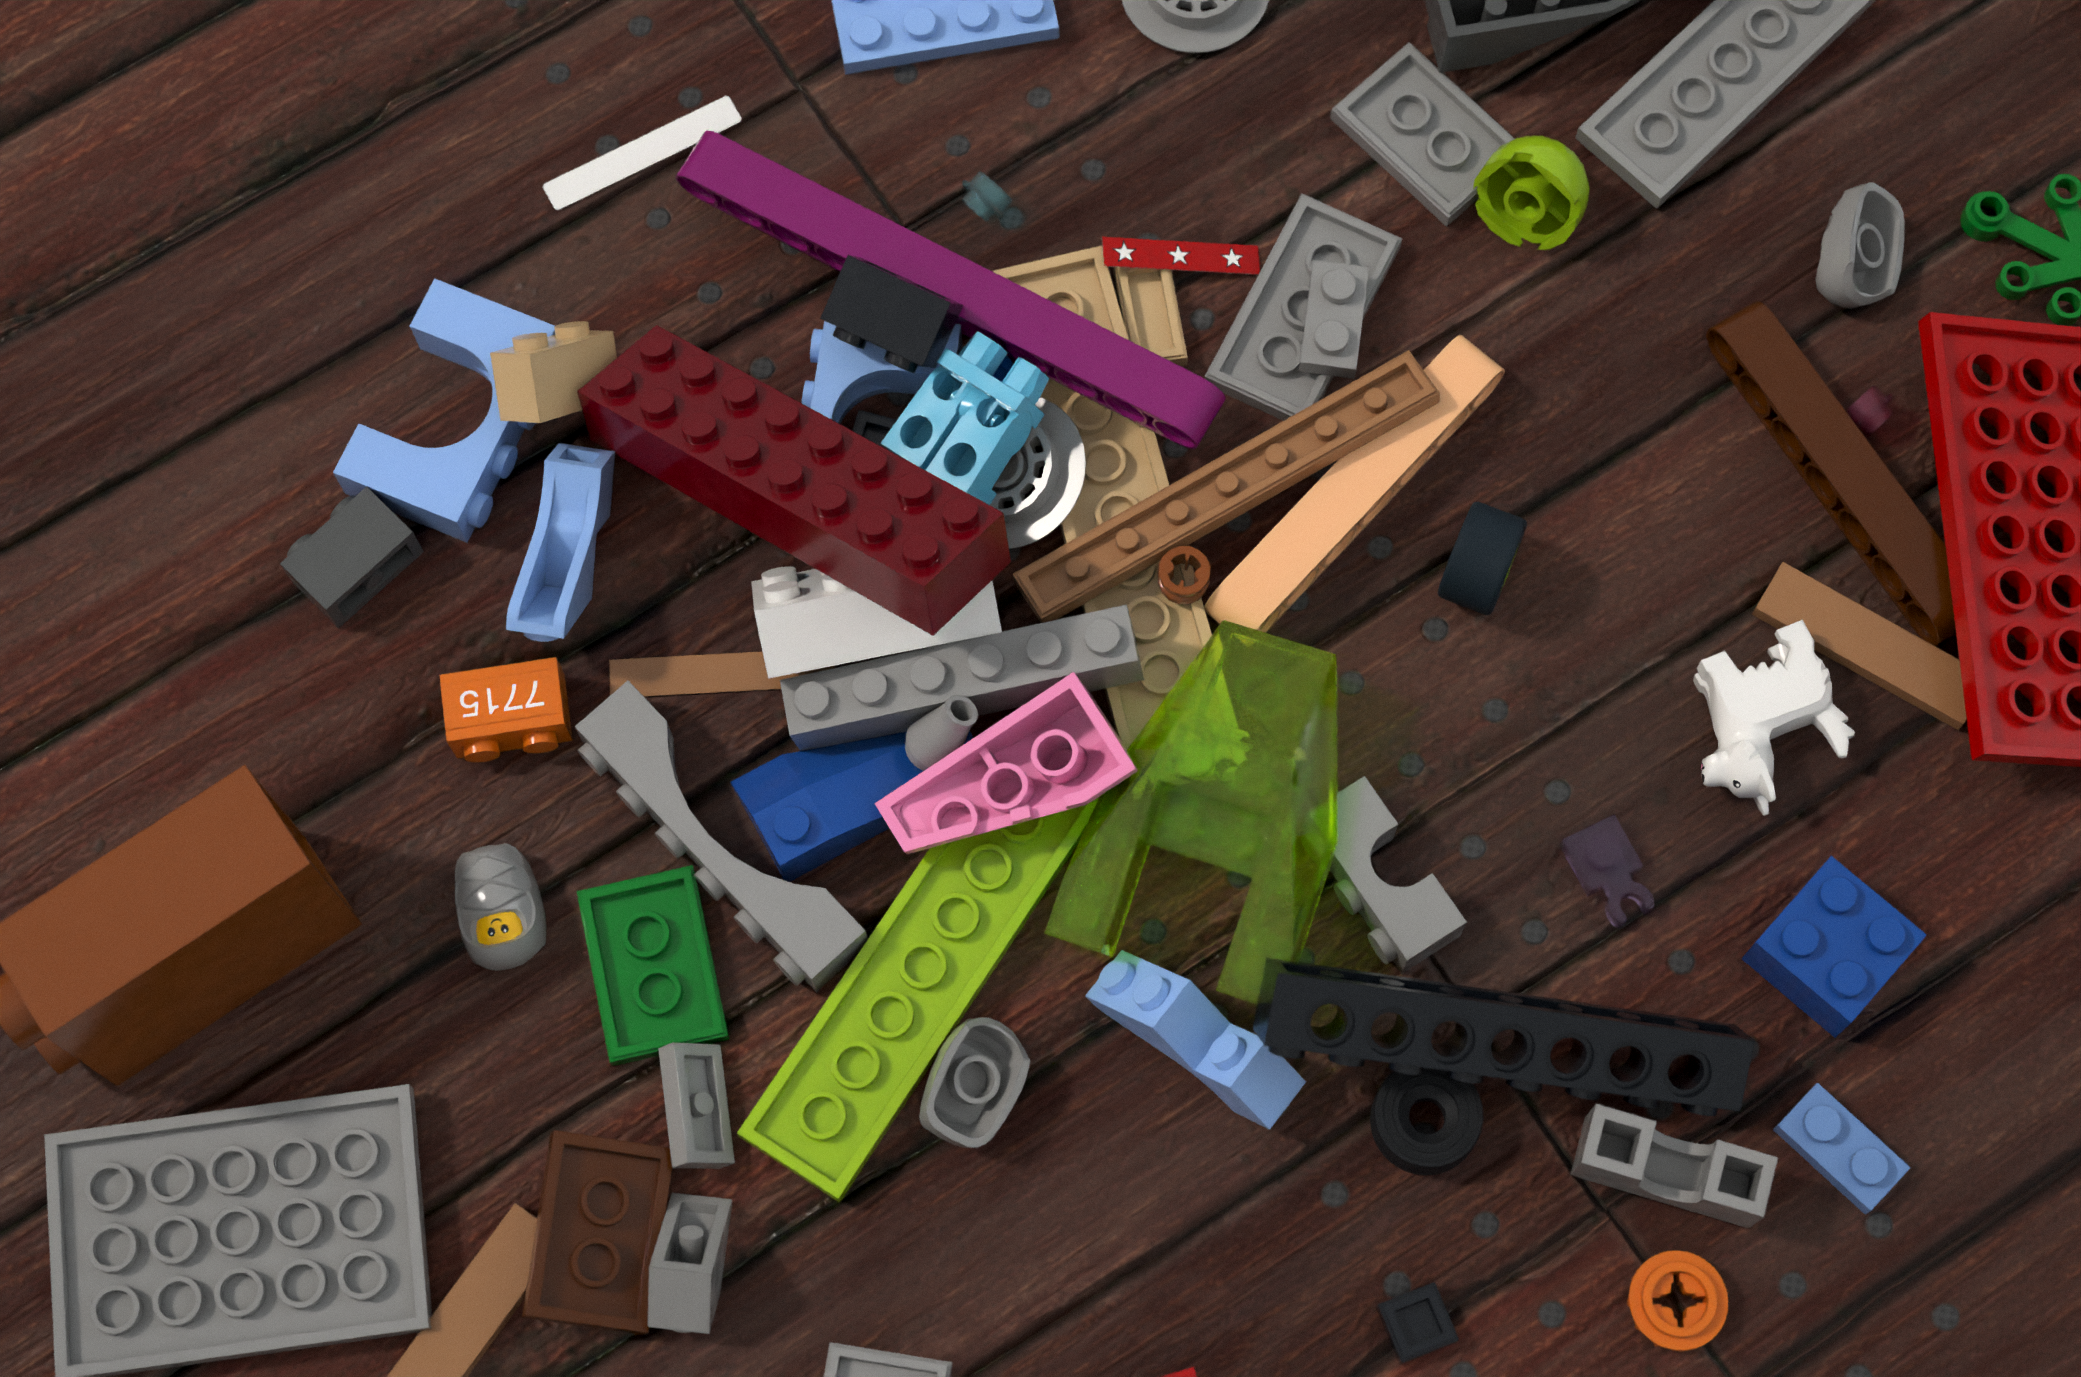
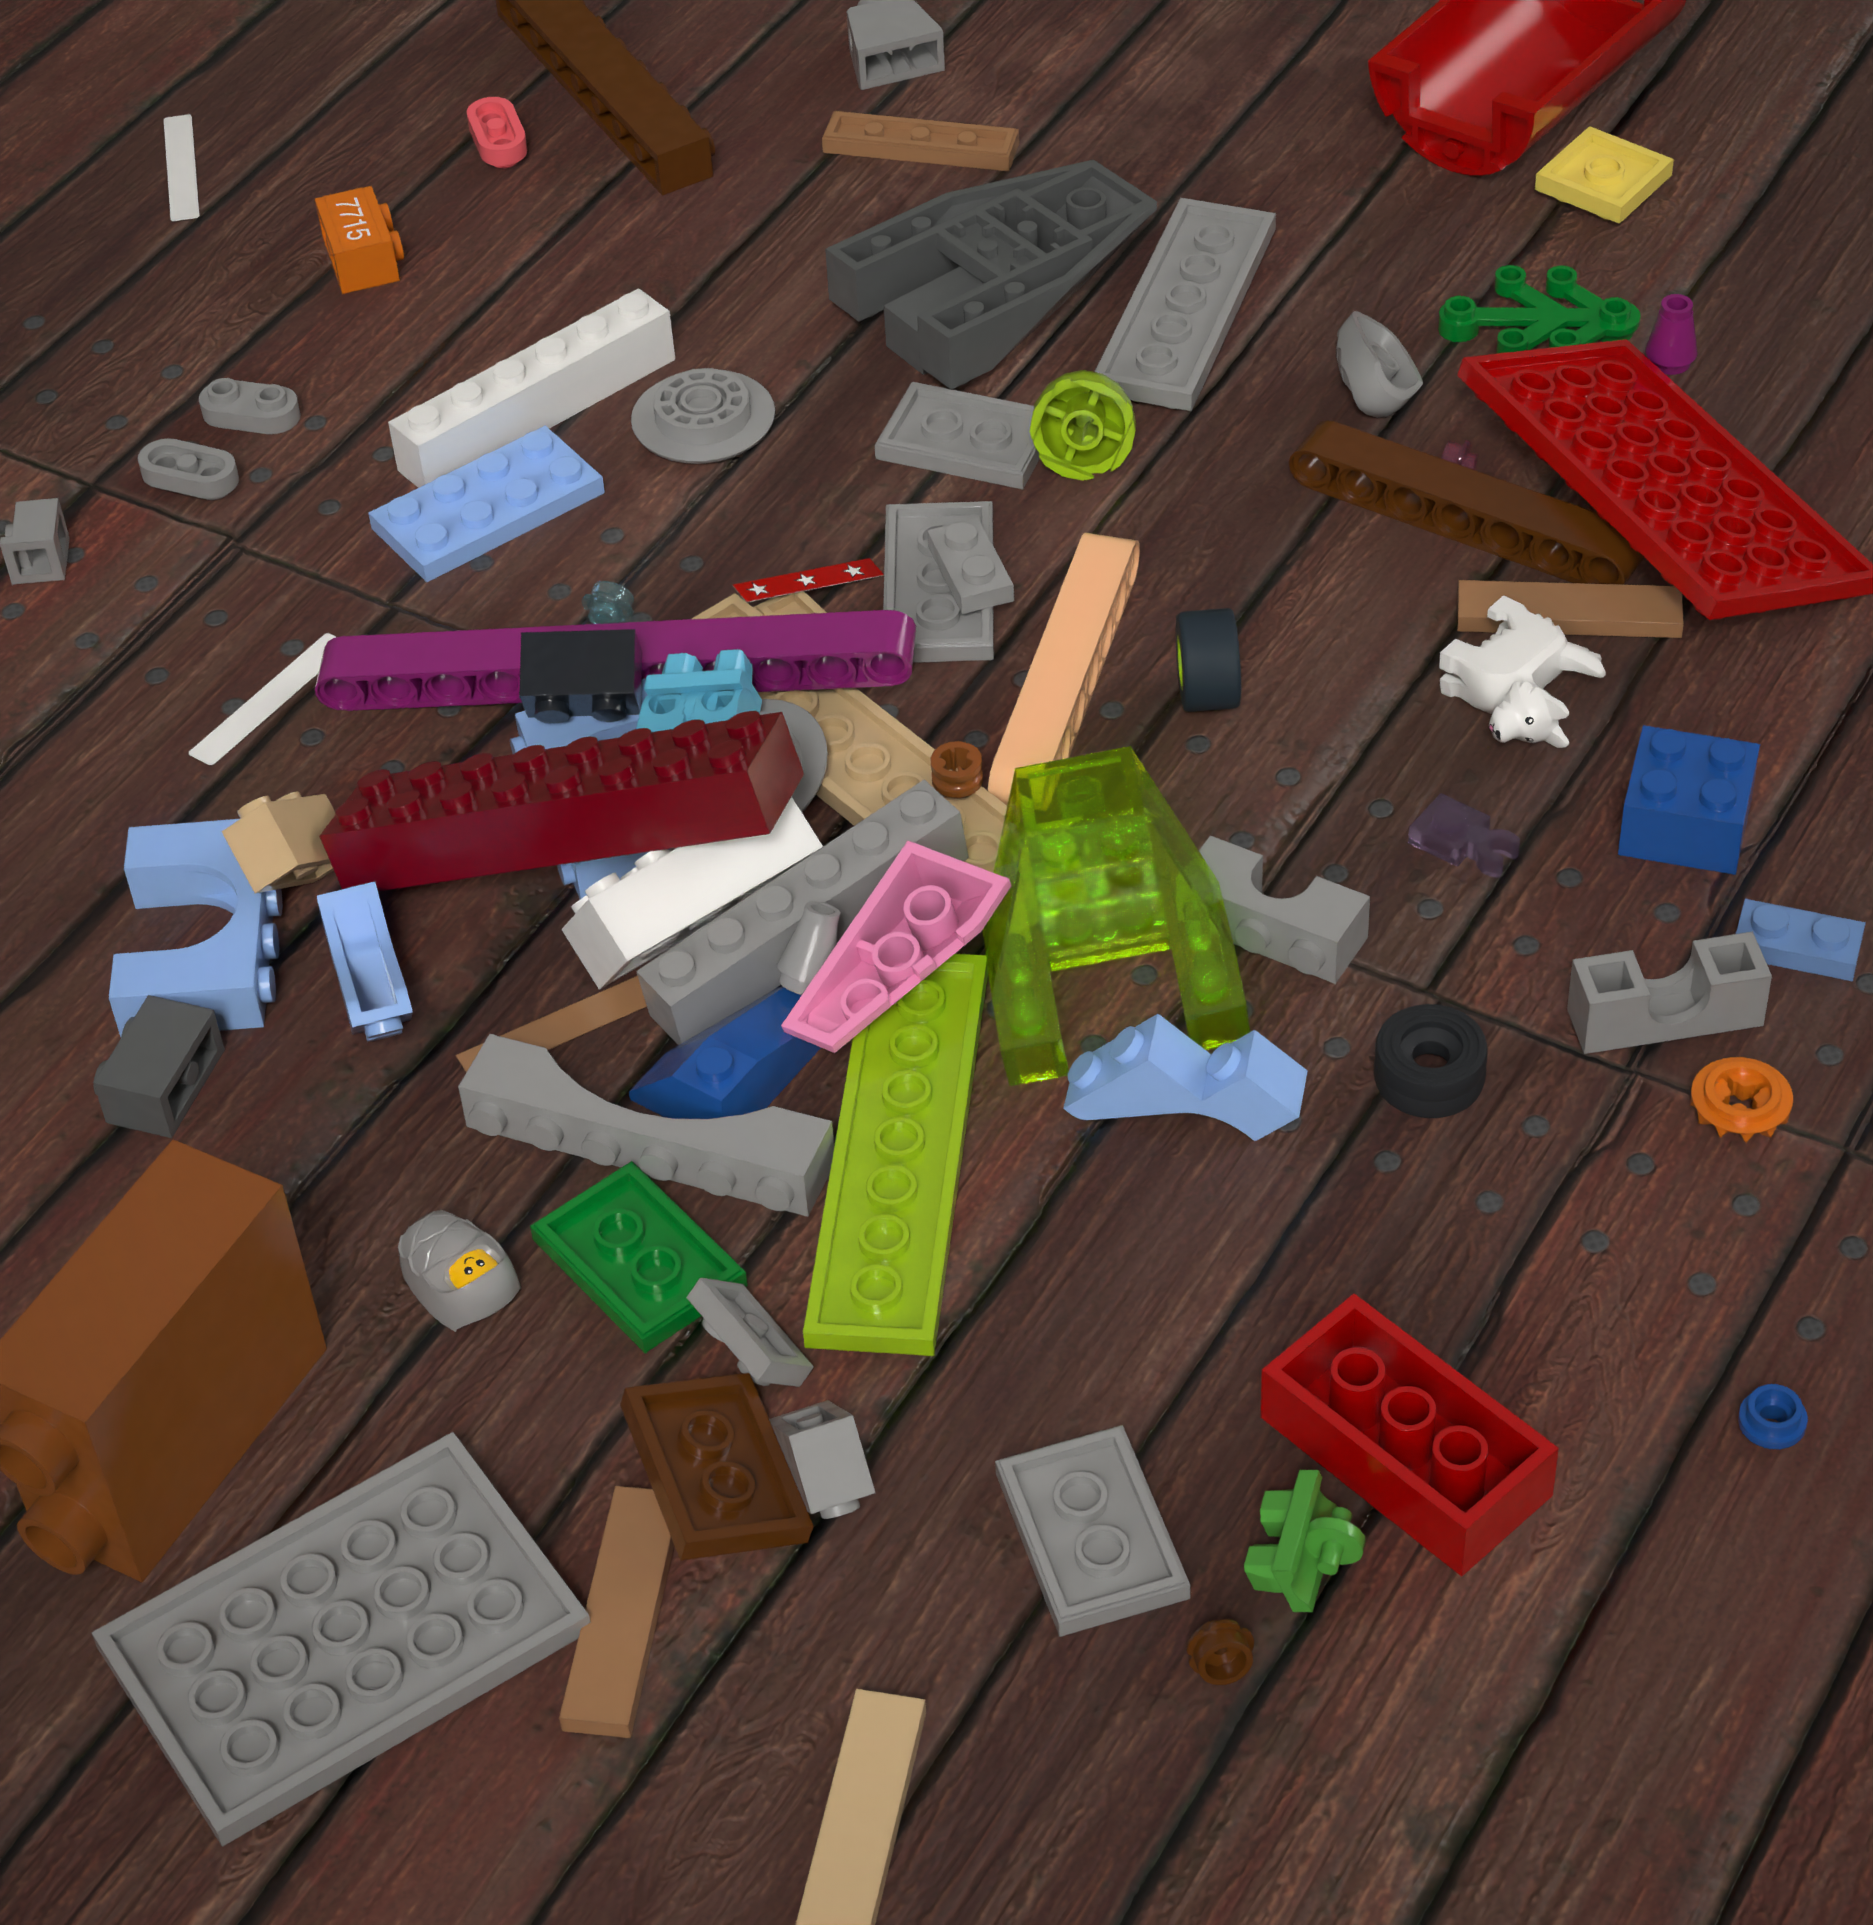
camera: 25 degrees left, 25 degrees down
(506, 709) = (379, 1115): orange brick -> none
(974, 1083) = (1005, 1200): light grey piece -> none
(1226, 487) = (958, 691): medium nougat tile -> none
(1295, 990) = (1263, 994): black brick -> none
(1417, 1323) = (1527, 1216): black tile -> none

